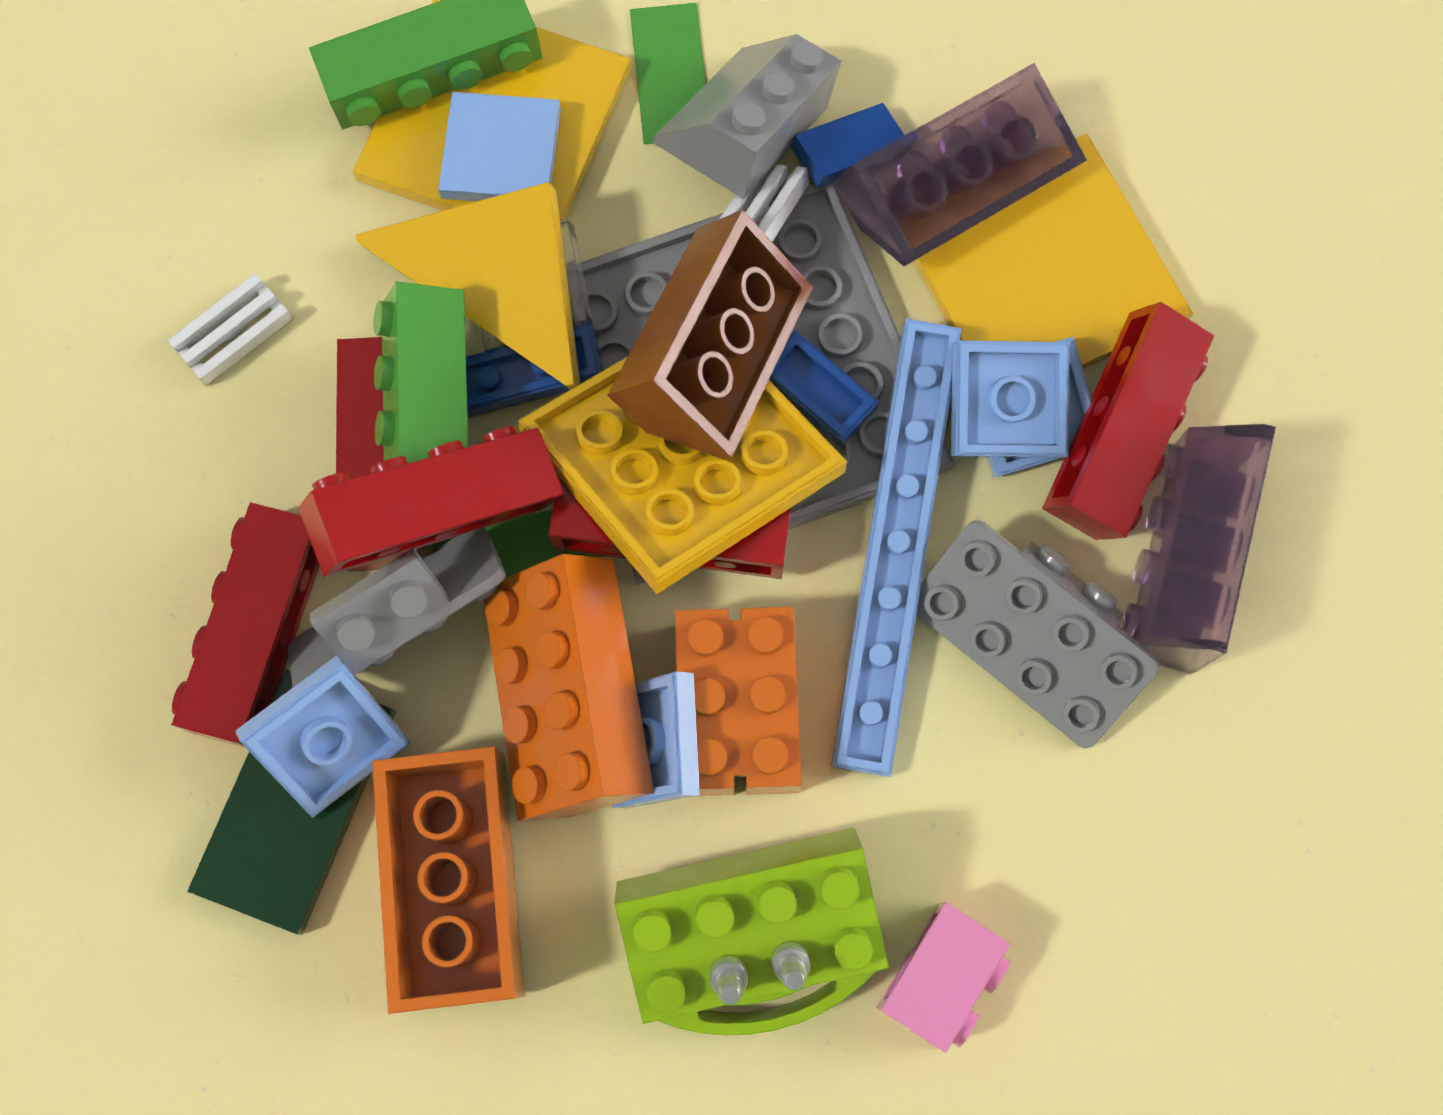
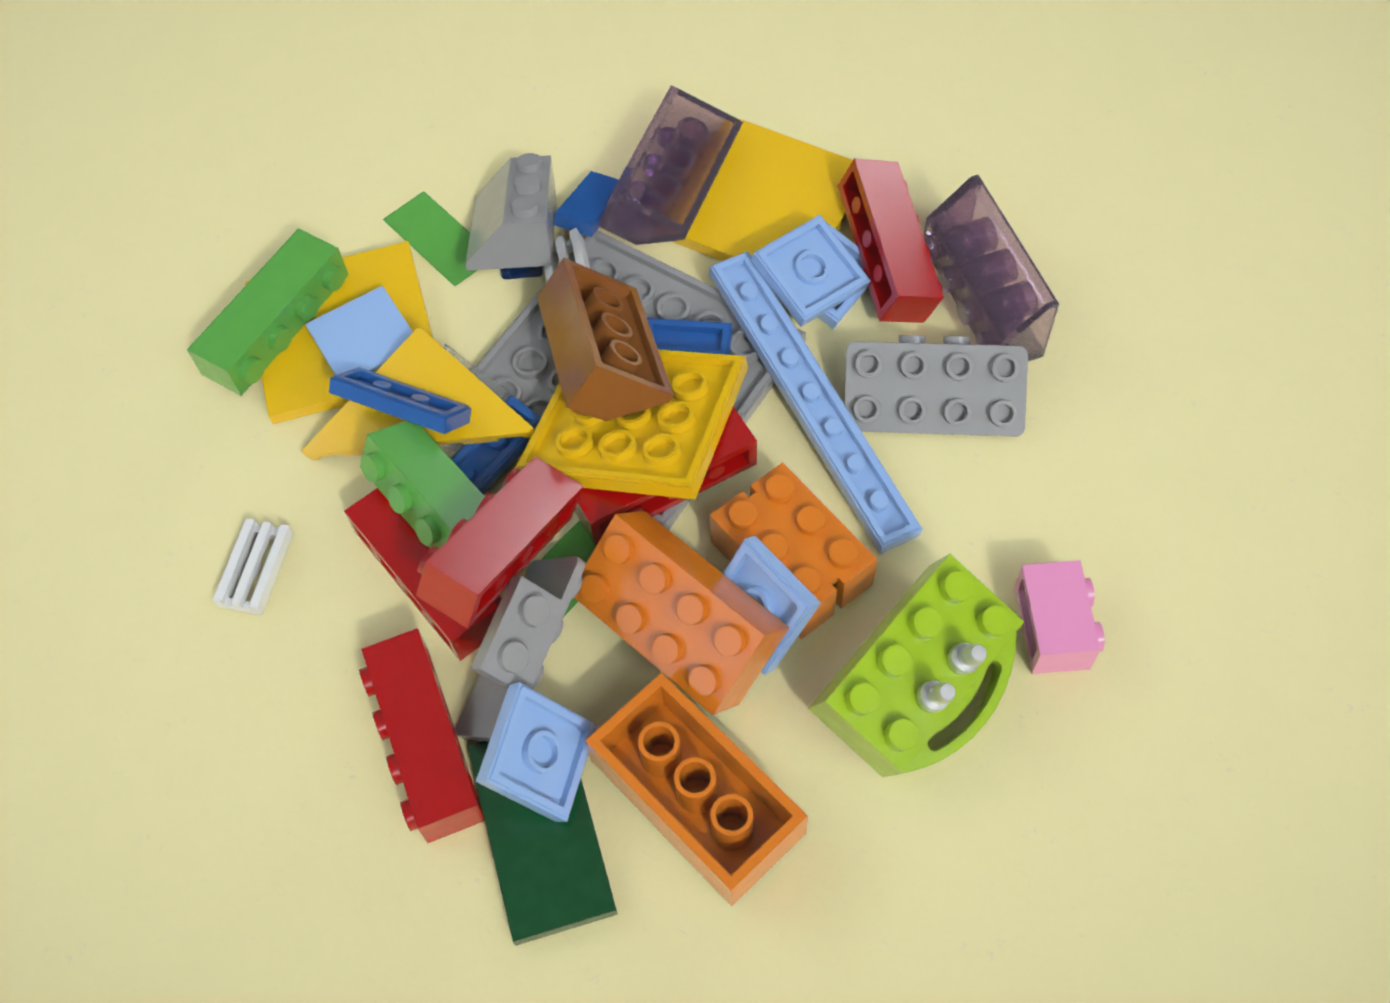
camera: 35 degrees left, 15 degrees down
(466, 259) = (400, 400): none -> blue tile

